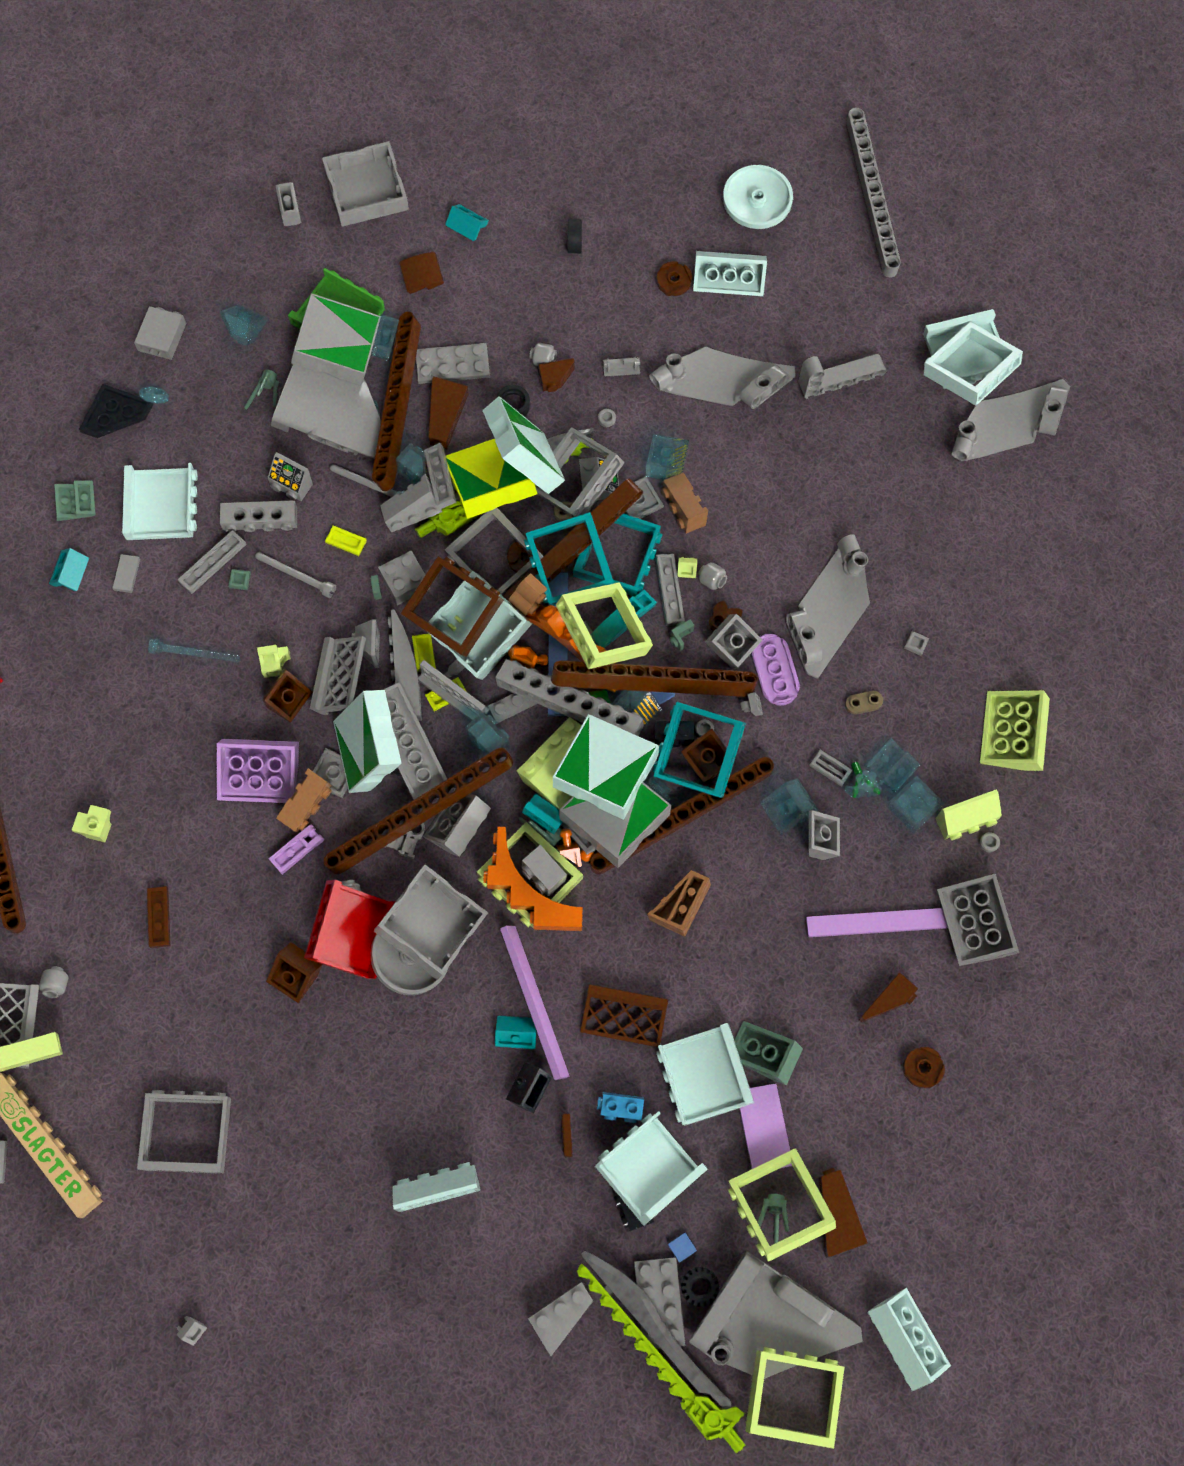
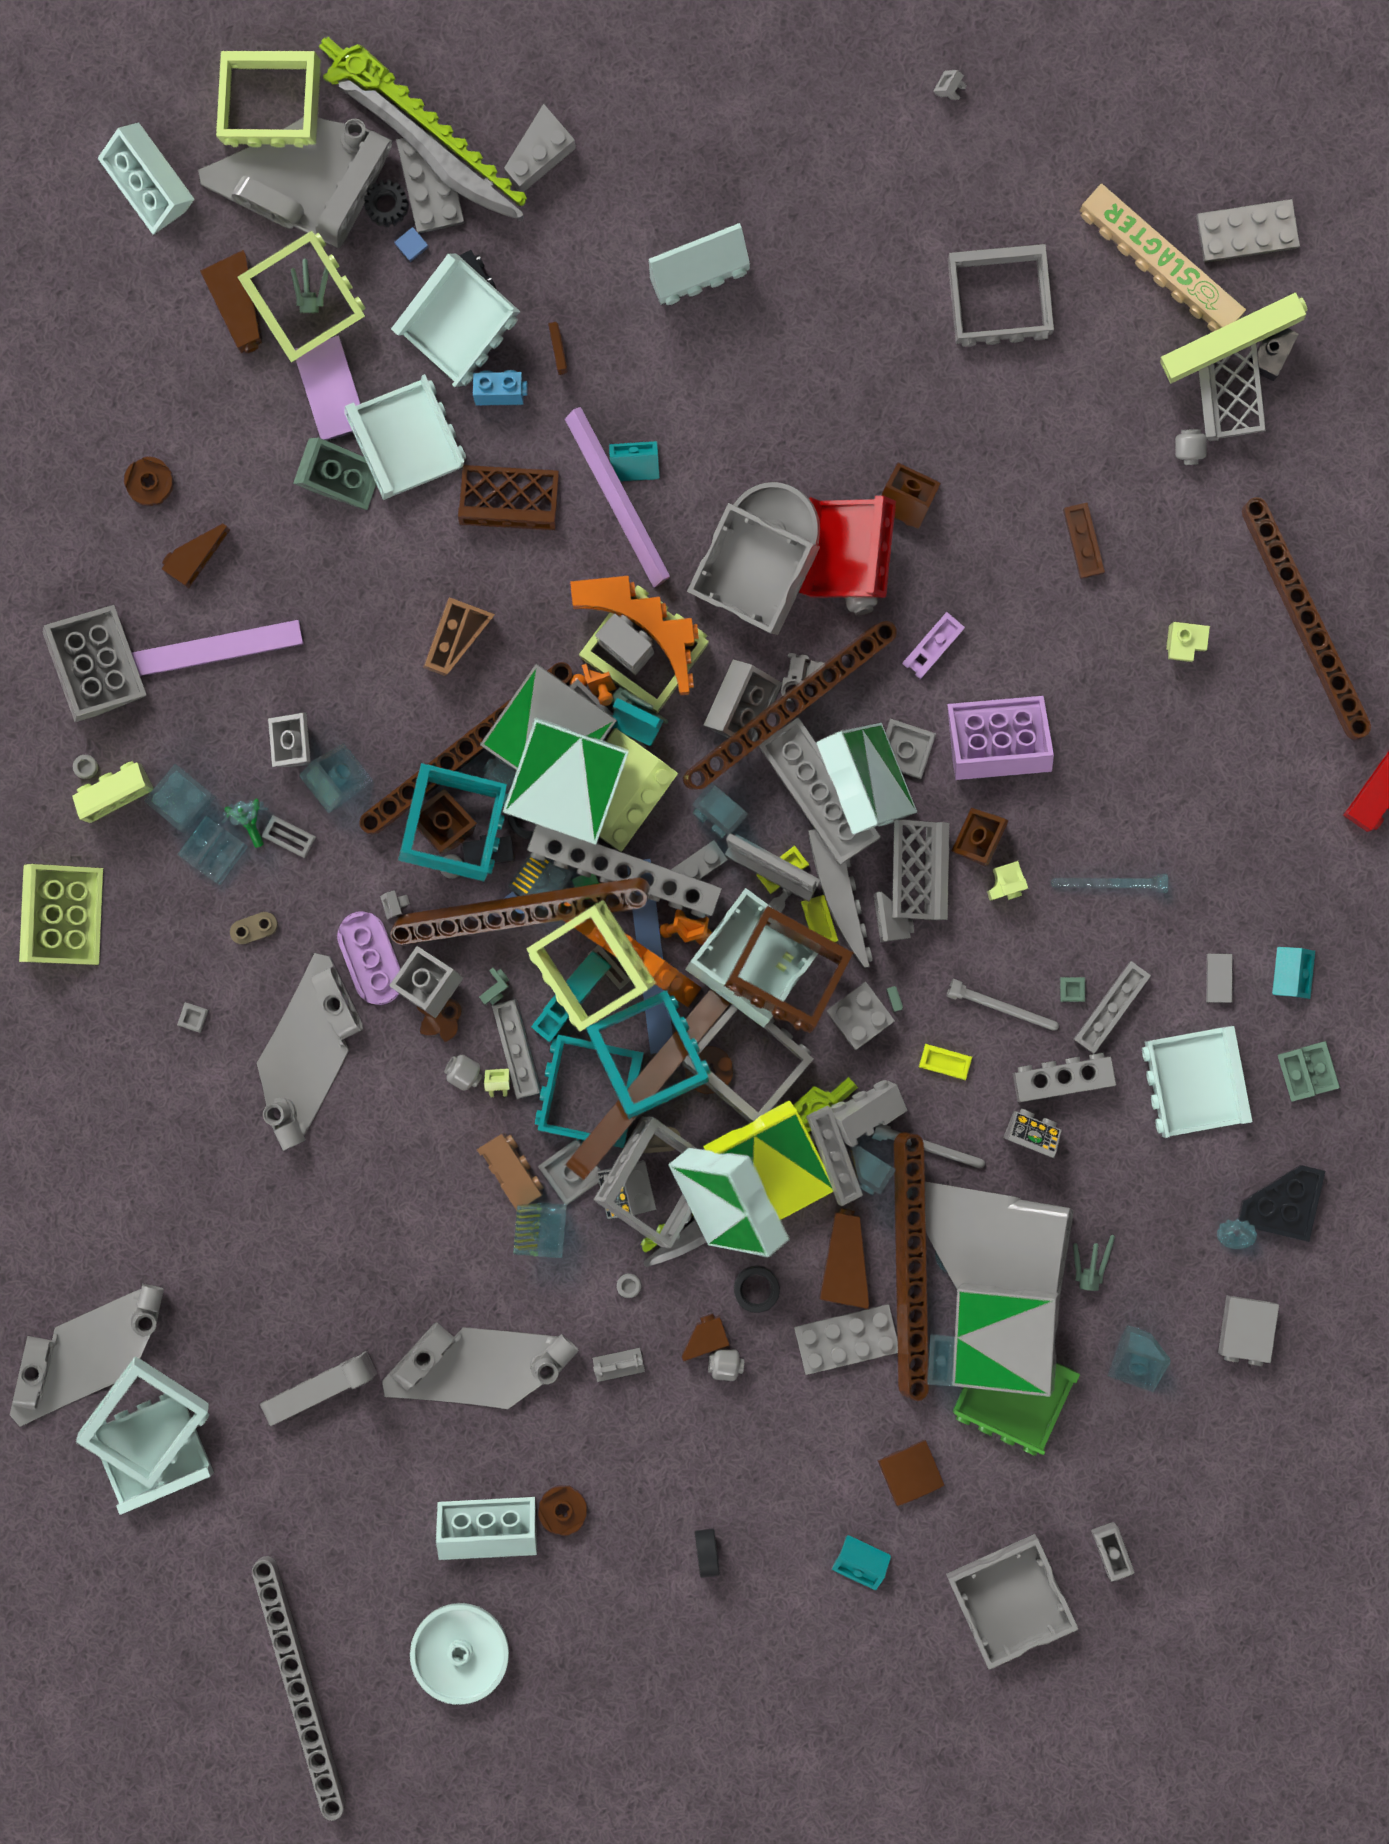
camera: 175 degrees right, 15 degrees up
(304, 801) = (932, 701): medium nougat wedge -> none
(527, 595) = (693, 997): medium nougat brick -> none
(529, 1087) = (609, 395): black brick -> none

